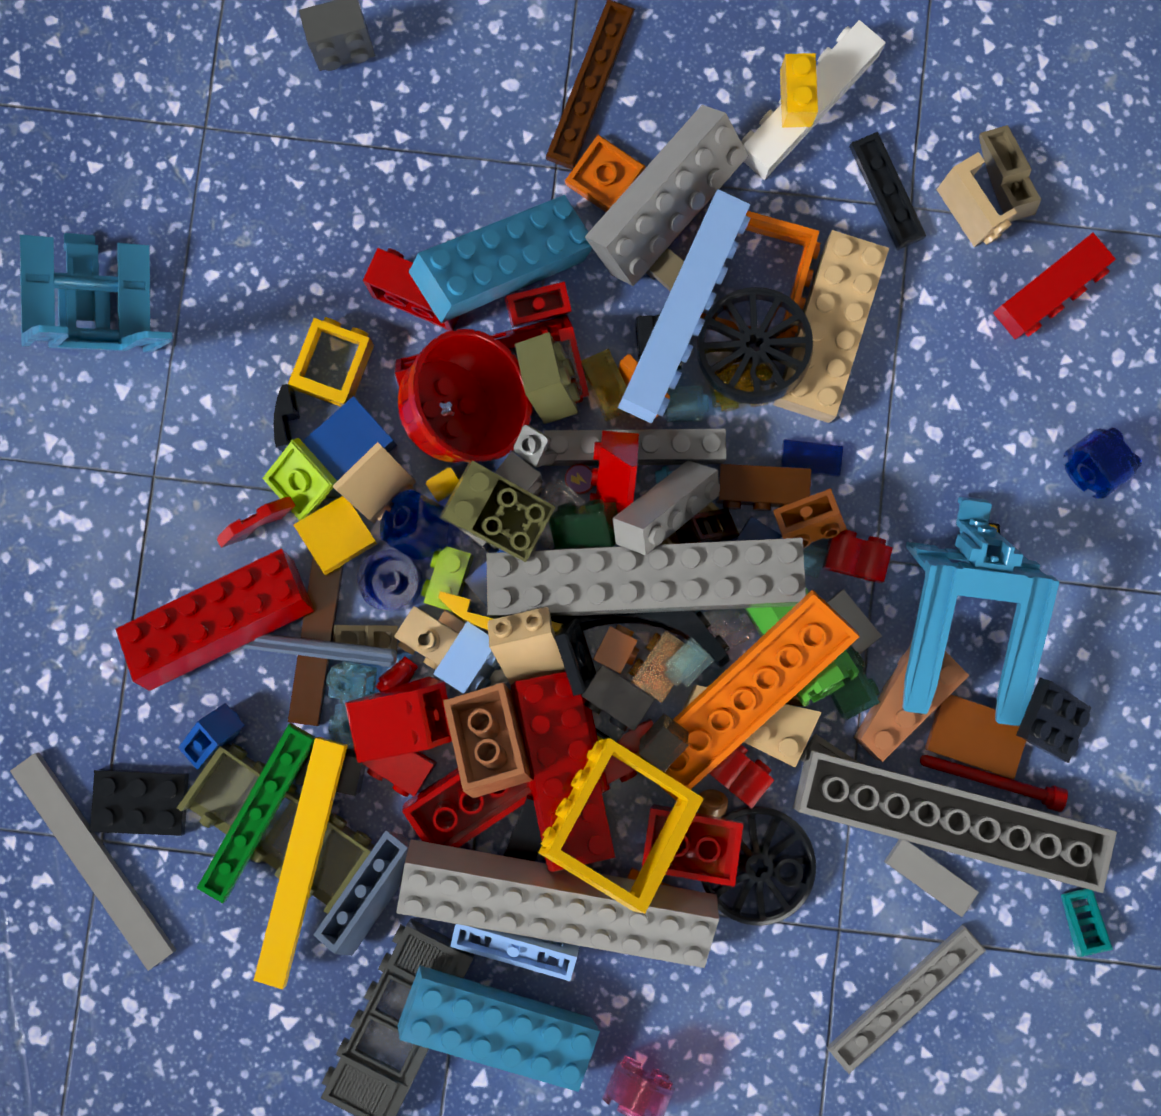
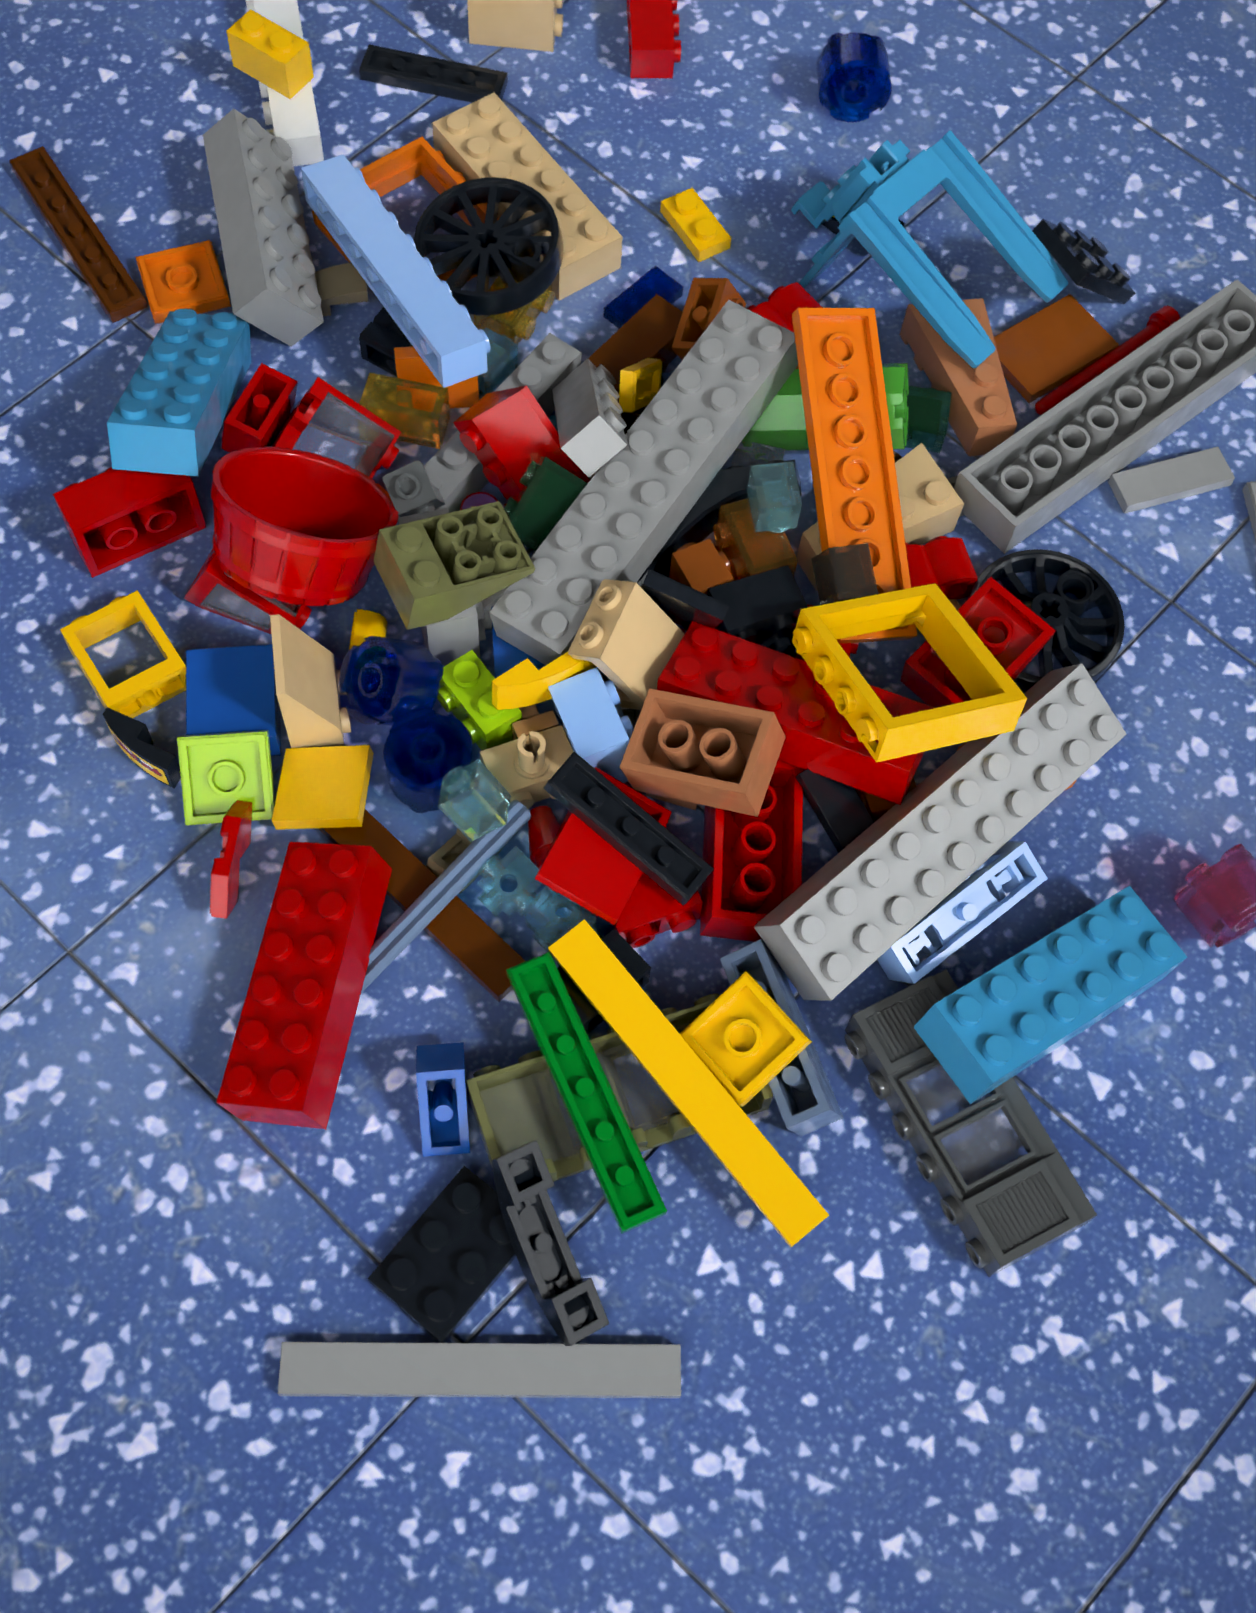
camera: 60 degrees left, 20 degrees down
(167, 852) = (541, 1246): none -> black slope
(344, 878) = (745, 1038): none -> yellow tile
(372, 631) = (474, 800): none -> clear light blue brick
(414, 730) = (628, 828): none -> black tile
(547, 377) = (349, 434): olive brick -> none
(725, 513) = (639, 384): none -> yellow plate
(899, 445) = (695, 224): none -> yellow plate

